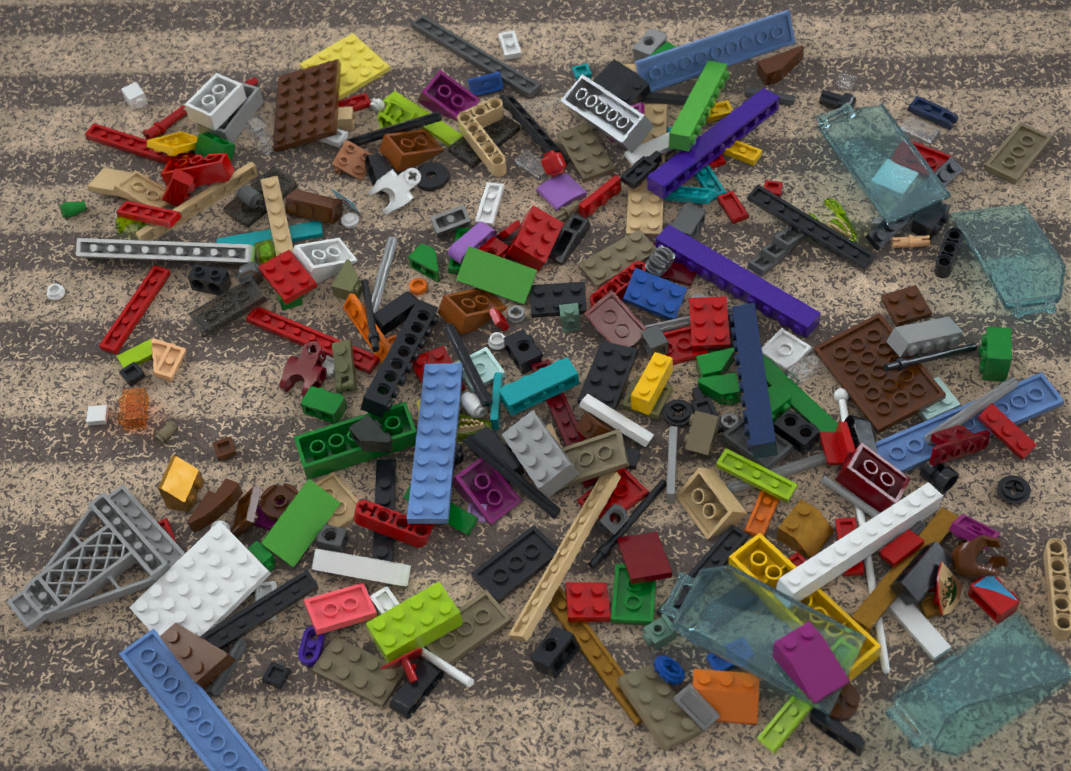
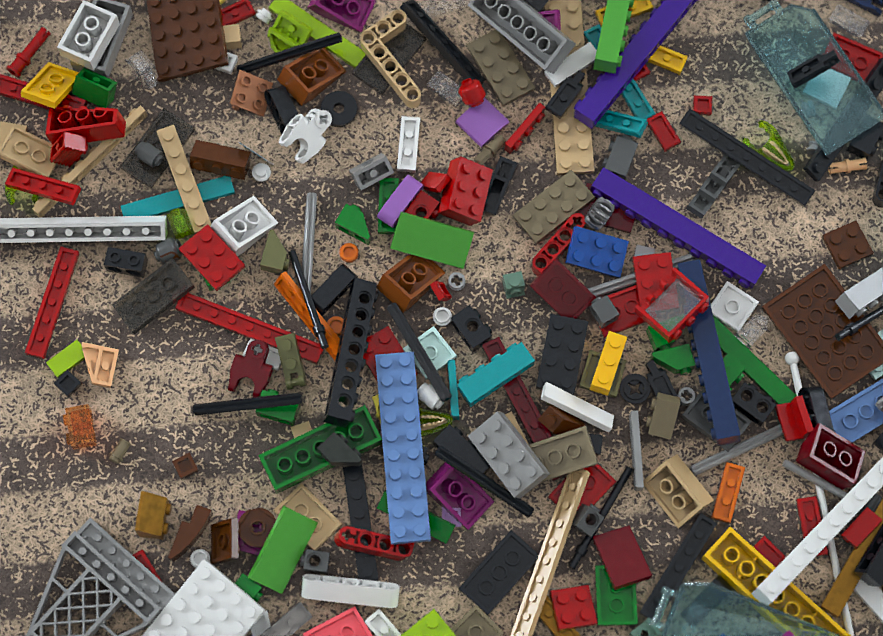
camera: 15 degrees left, 20 degrees up
(97, 415) = (41, 434): white tile -> none
(294, 395) = (248, 404): none -> black axle
(547, 298) = (496, 259): black plate -> none
(722, 336) = (673, 306): none -> window
(756, 475) = (720, 459): lime plate -> none
(805, 530) = (770, 513): pearl gold slope -> none
(879, 155) = (812, 68): none -> black hinge

